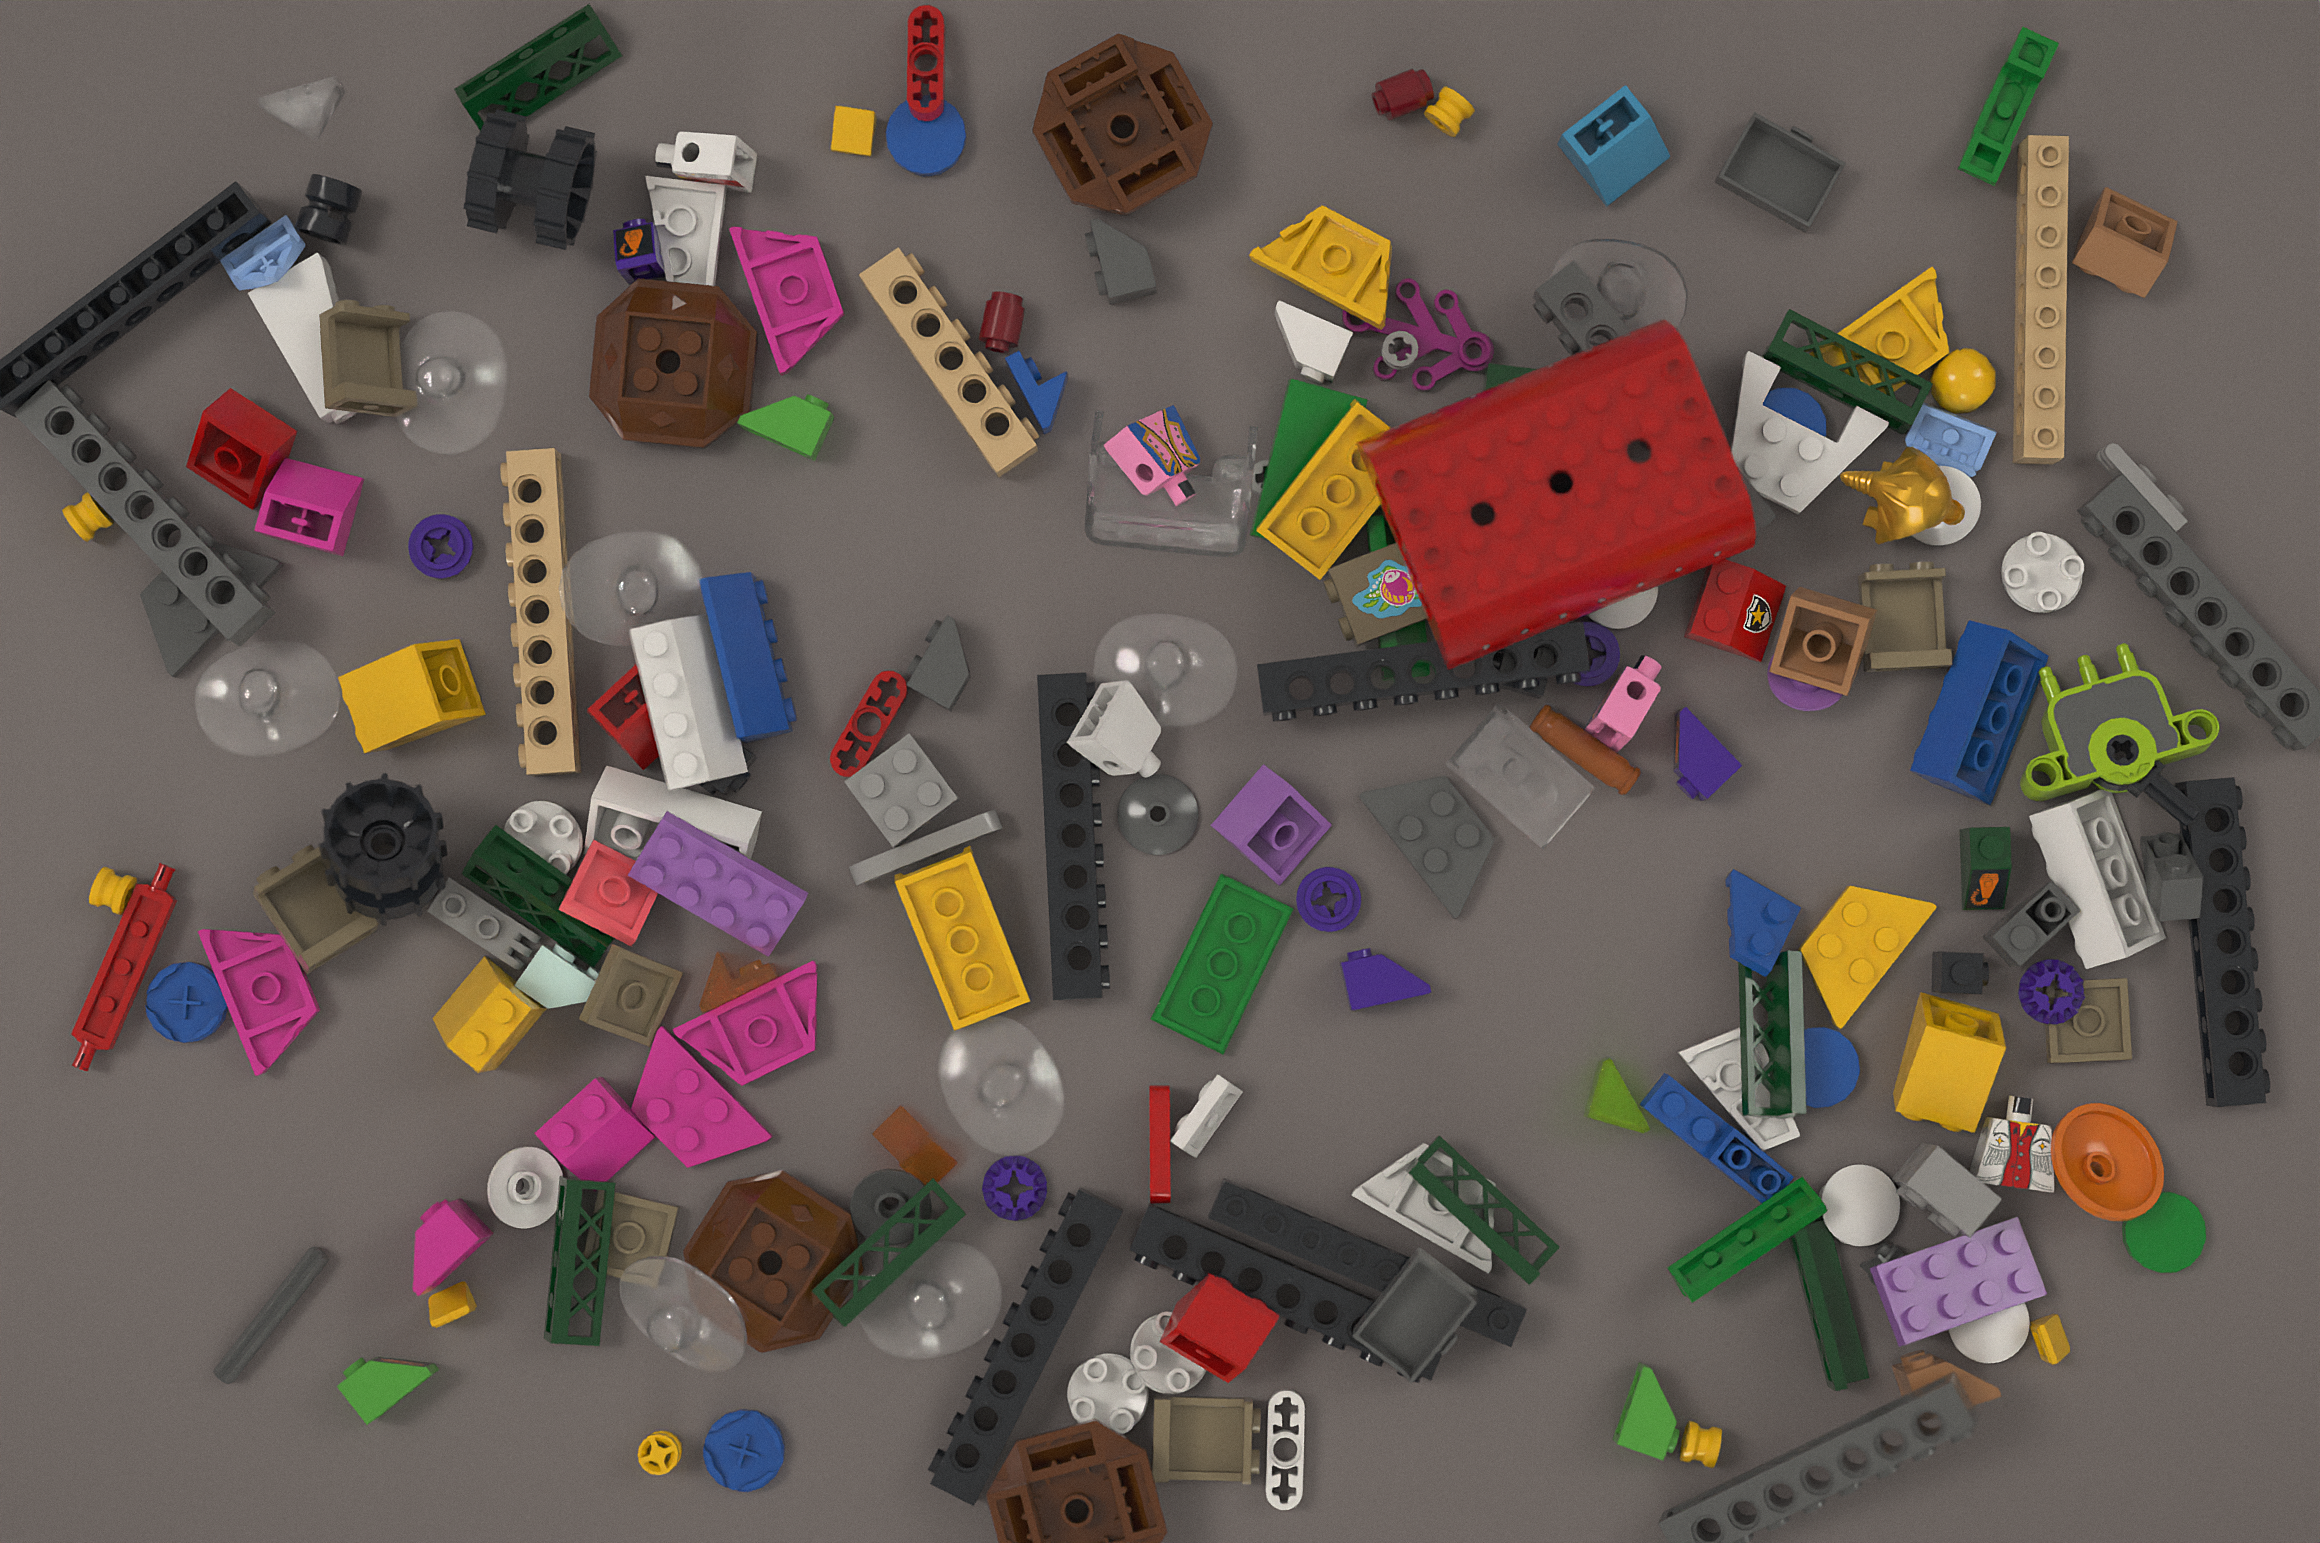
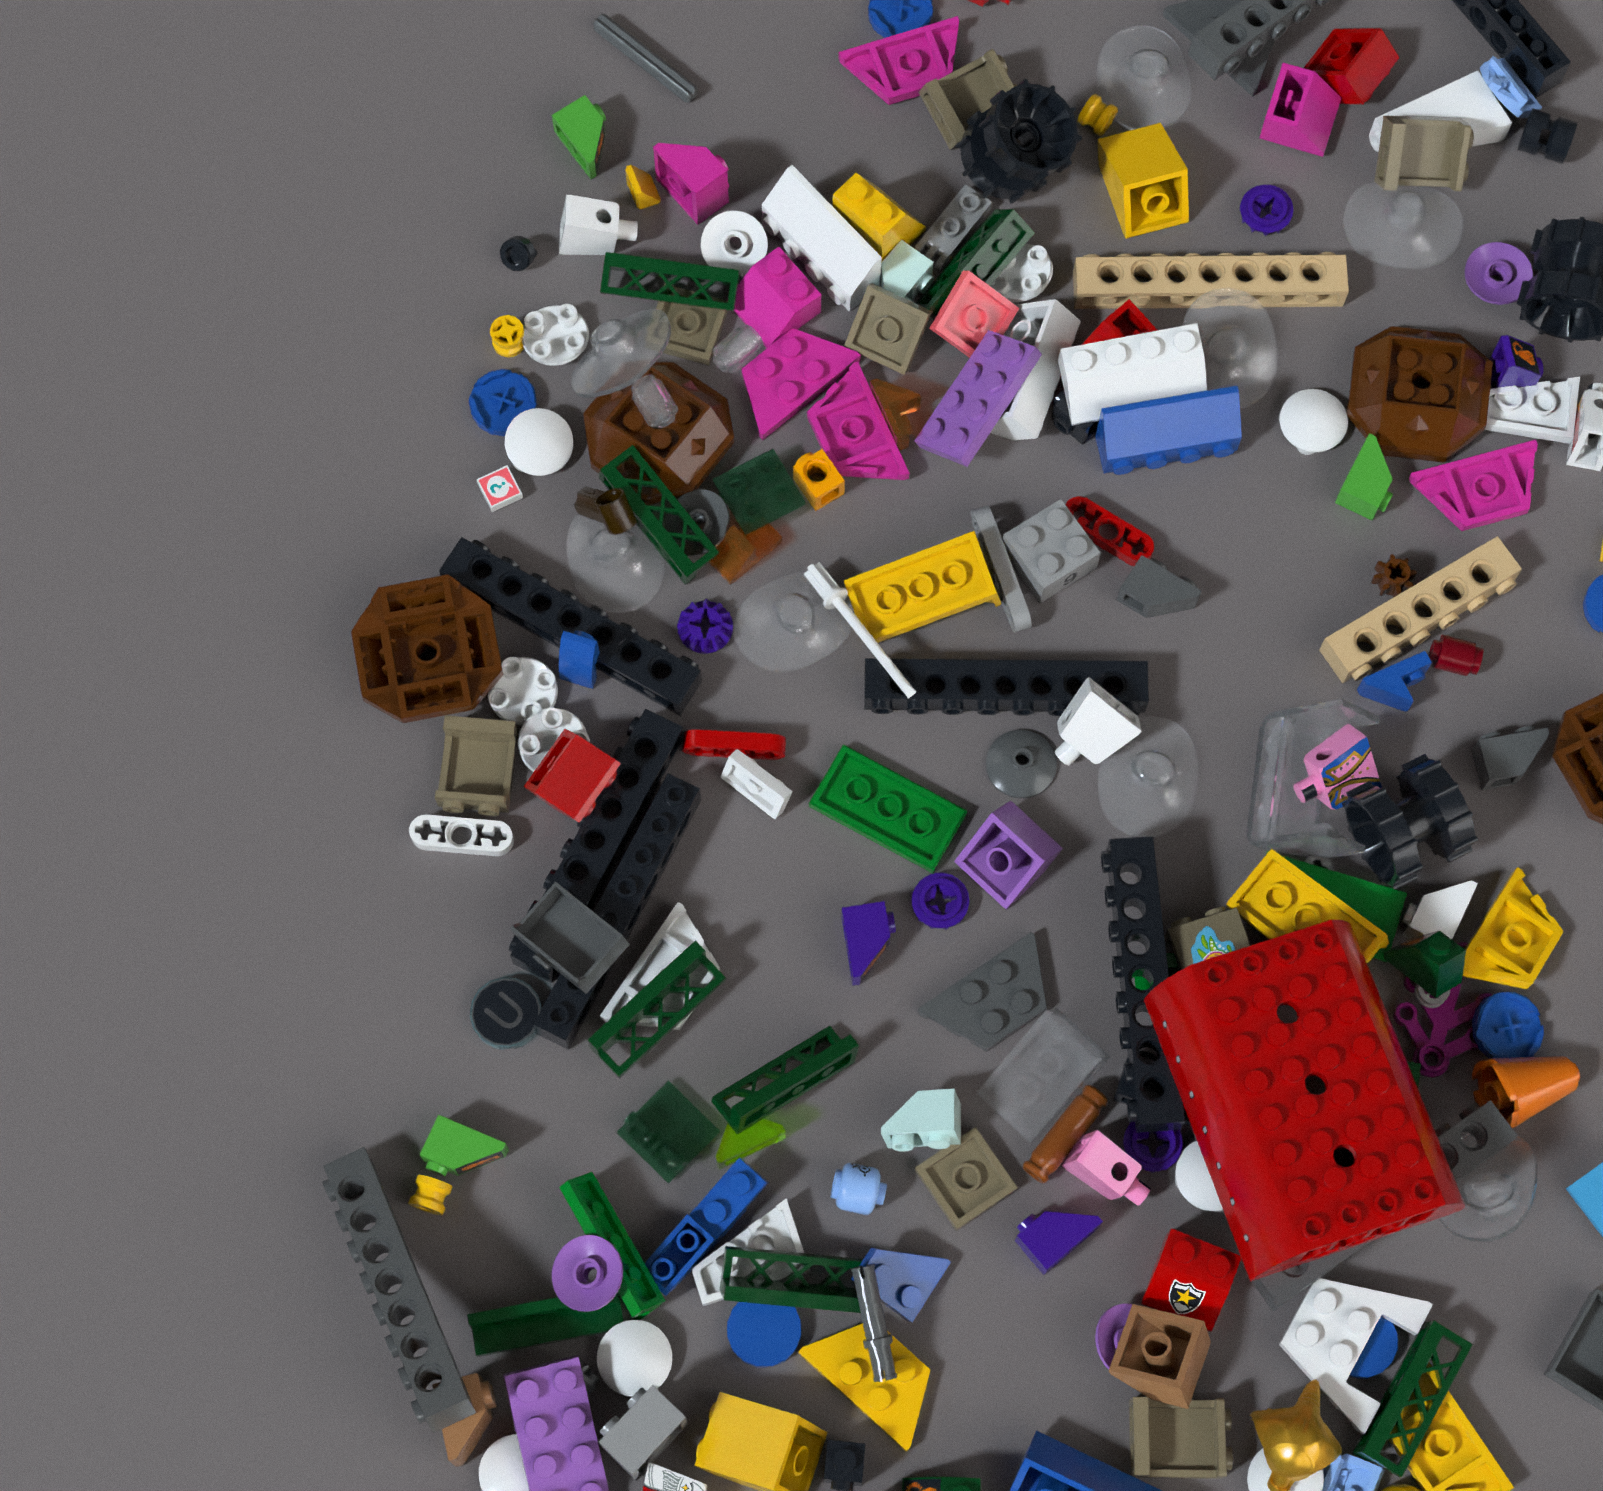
camera: 90 degrees right, 15 degrees down
(325, 753) = (1097, 114): none -> yellow wheel
(503, 253) = (1498, 260): none -> medium lavender dish
(518, 1083) = (820, 239): none -> white slope
(518, 1376) = (592, 227): none -> white torso
(550, 1449) = (517, 253): none -> black tile
(654, 1395) = (555, 334): none -> white dish
(663, 1174) = (737, 349): none -> clear brick
(715, 487) = (1313, 421): none -> white dish
(757, 1269) = (654, 401): none -> clear brick
(797, 1402) = (538, 442): none -> white dish
(841, 1059) = (819, 492): none -> light orange brick
(849, 1136) = (759, 491): none -> clear green hinge
(856, 1444) = (499, 488): none -> tile
(888, 1315) = (606, 507): none -> dark brown piece
(910, 404) = (1385, 571): none -> reddish brown gear
(976, 1040) = (835, 598): none -> white piece
(1072, 1332) = (578, 658): none -> blue slope
(1208, 360) = (1429, 812): none -> black piece
(1374, 356) = (1430, 961): none -> dark green slope
(1434, 267) = (1507, 1026): none -> blue tile
(1488, 1379) = (505, 1013): none -> black tile
(1503, 250) = (1524, 1084): none -> orange cone
(1561, 1055) = (787, 1085): none -> dark green fence
(1582, 903) = (925, 1120): none -> light aqua slope
(1610, 1187) = (668, 1131): none -> clear green hinge
(1639, 856) = (966, 1179): none -> dark tan tile
(1663, 974) = (858, 1188): none -> light blue head
(1792, 1279) = (572, 1271): none -> medium lavender dish
(1830, 945) = (874, 1323): none -> dark grey pin

